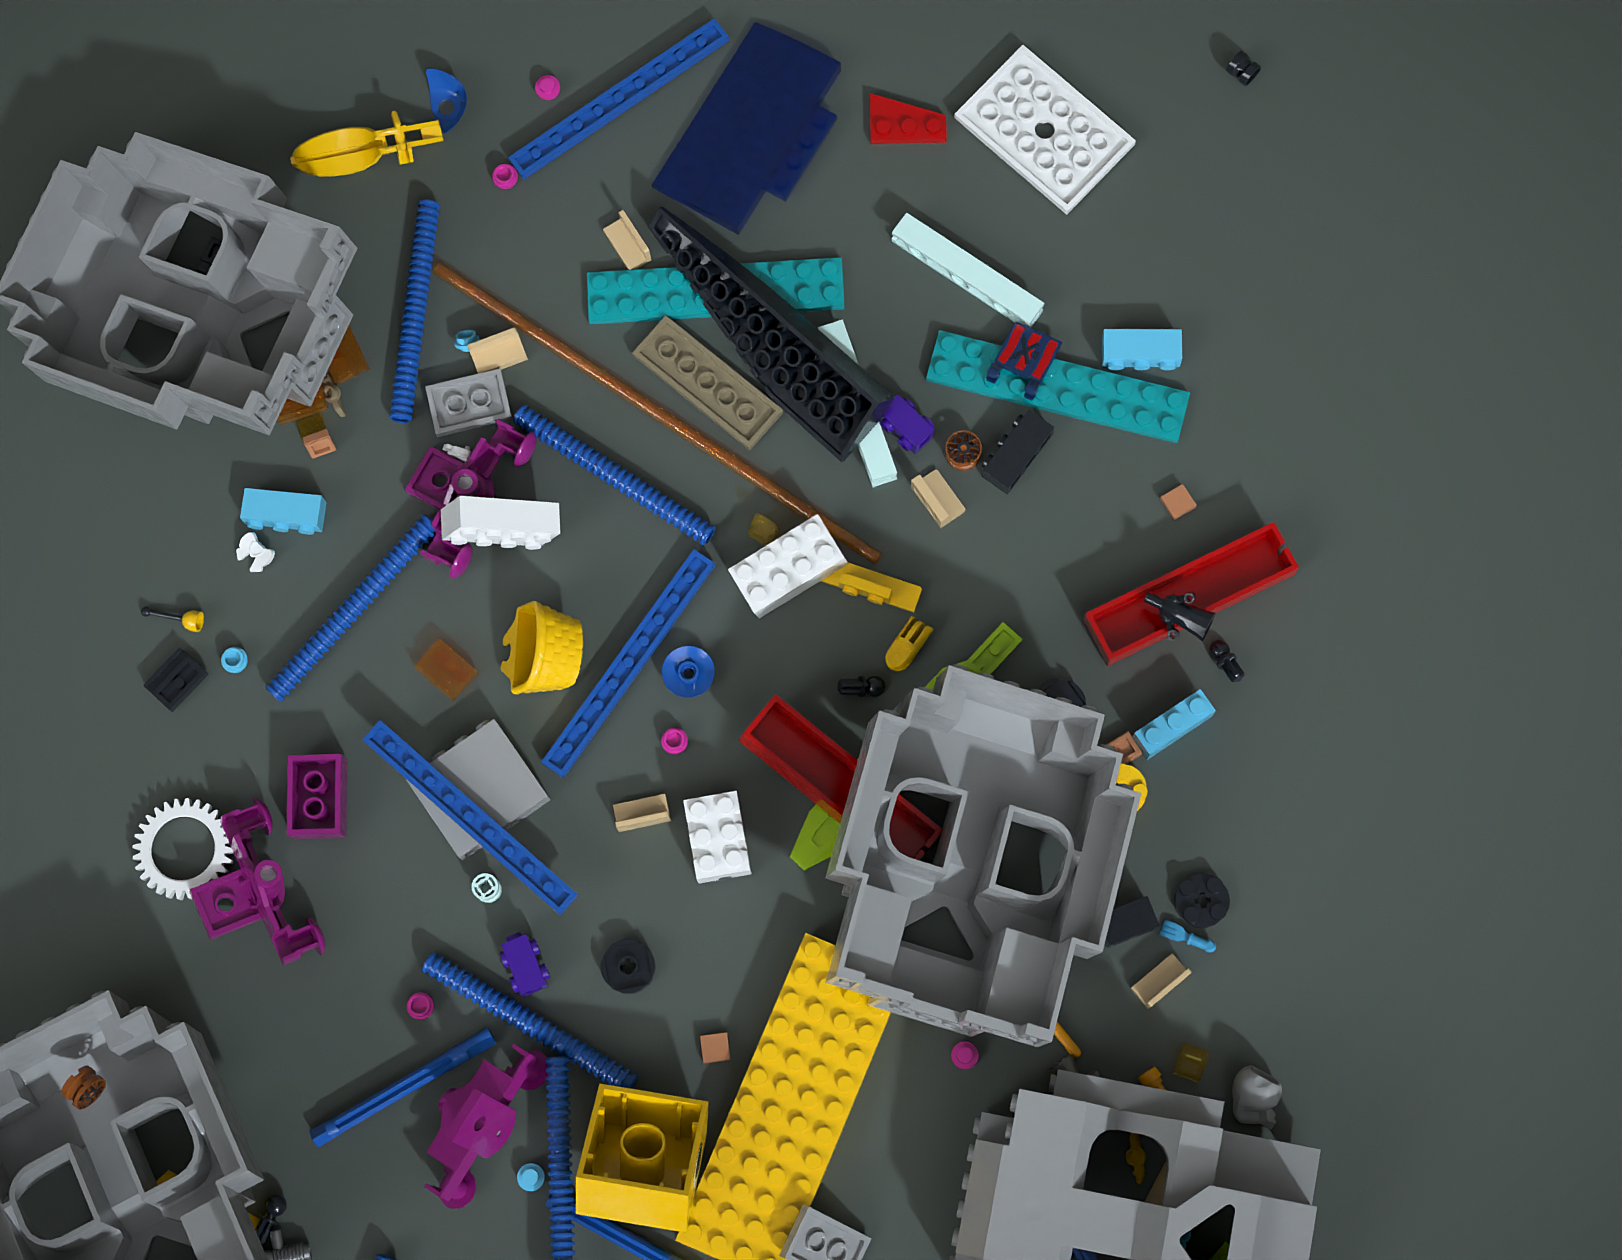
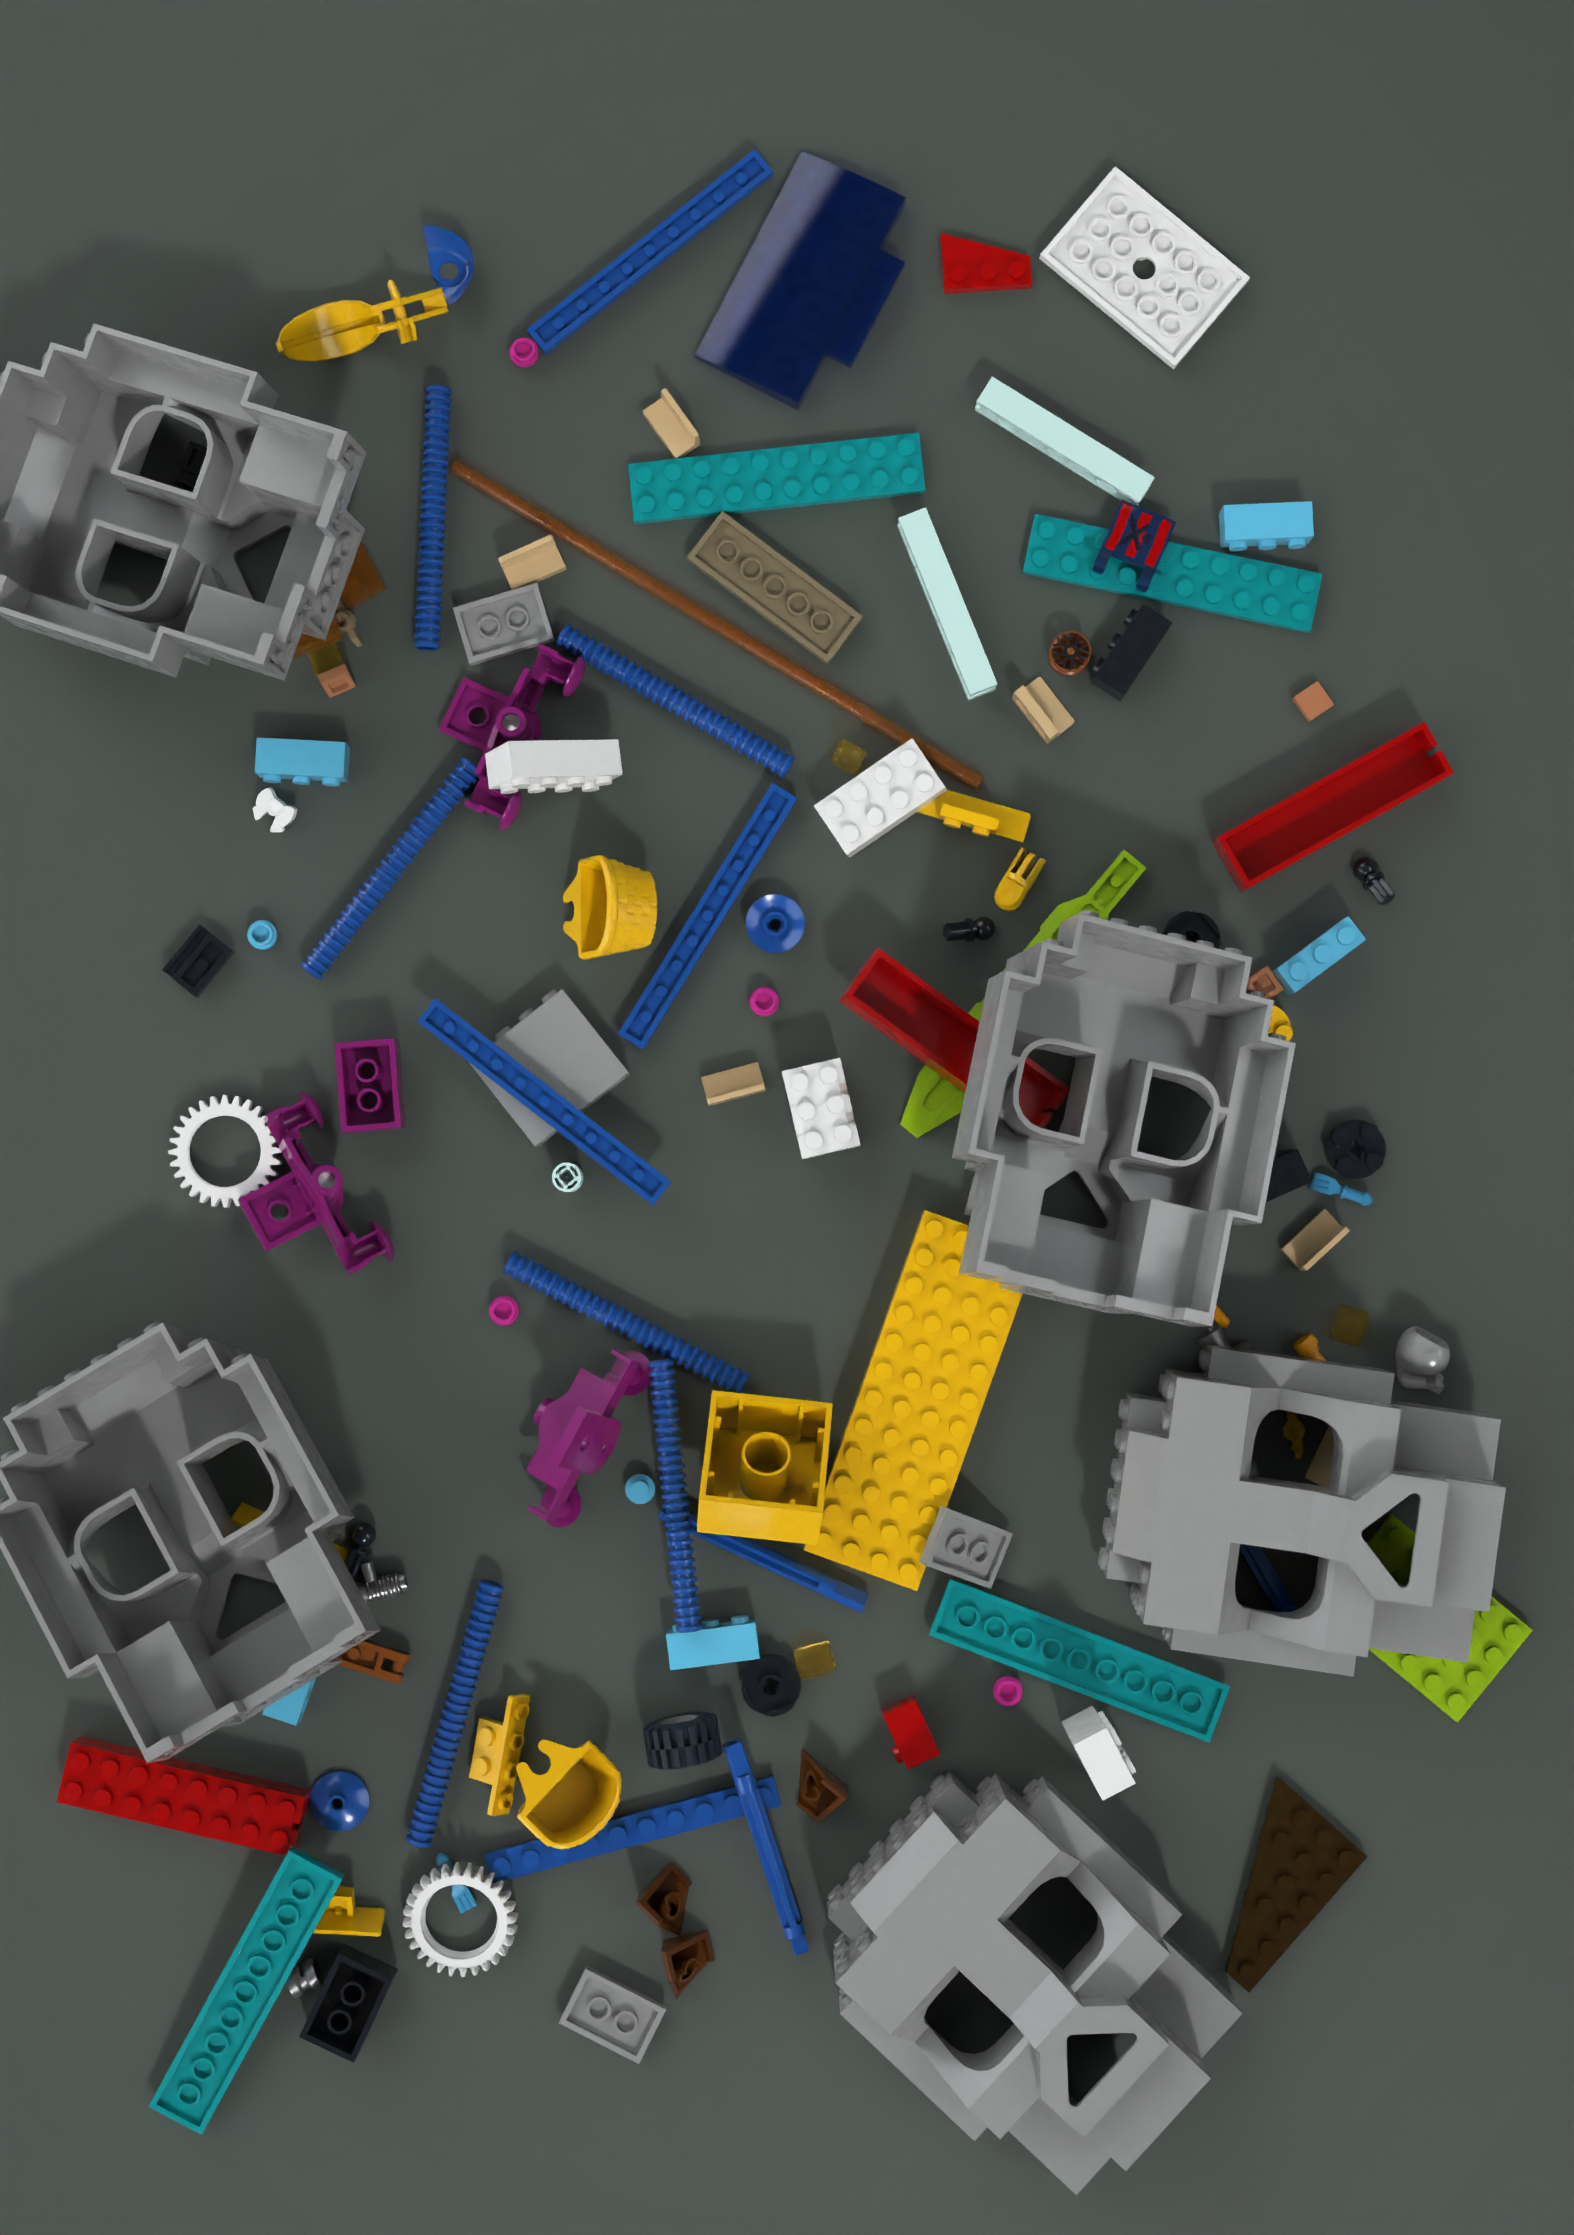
camera: 10 degrees left, 10 degrees up
(83, 1087) = (143, 1426): dark orange wheel -> none
(191, 620) = (209, 892): yellow hinge -> none
(446, 669) = (502, 934): clear orange plate -> none
(452, 1058) = (493, 1399): blue piece -> none
(458, 452) = (501, 686): white piece -> none
(465, 338) = (494, 549): medium azure plate -> none
(521, 956) = (613, 1253): dark purple brick -> none
(547, 87) = (565, 242): dark pink plate -> none
(615, 958) = (739, 1241): black plate -> none
(715, 1048) = (831, 1338): nougat tile -> none
(785, 350) = (862, 547): black wedge -> none
(907, 425) = (999, 622): dark purple brick -> none
(964, 1055) = (1104, 1331): dark pink plate -> none
(1174, 610) = (1318, 829): black piece -> none
(1243, 68) = (1370, 184): black wheel -> none

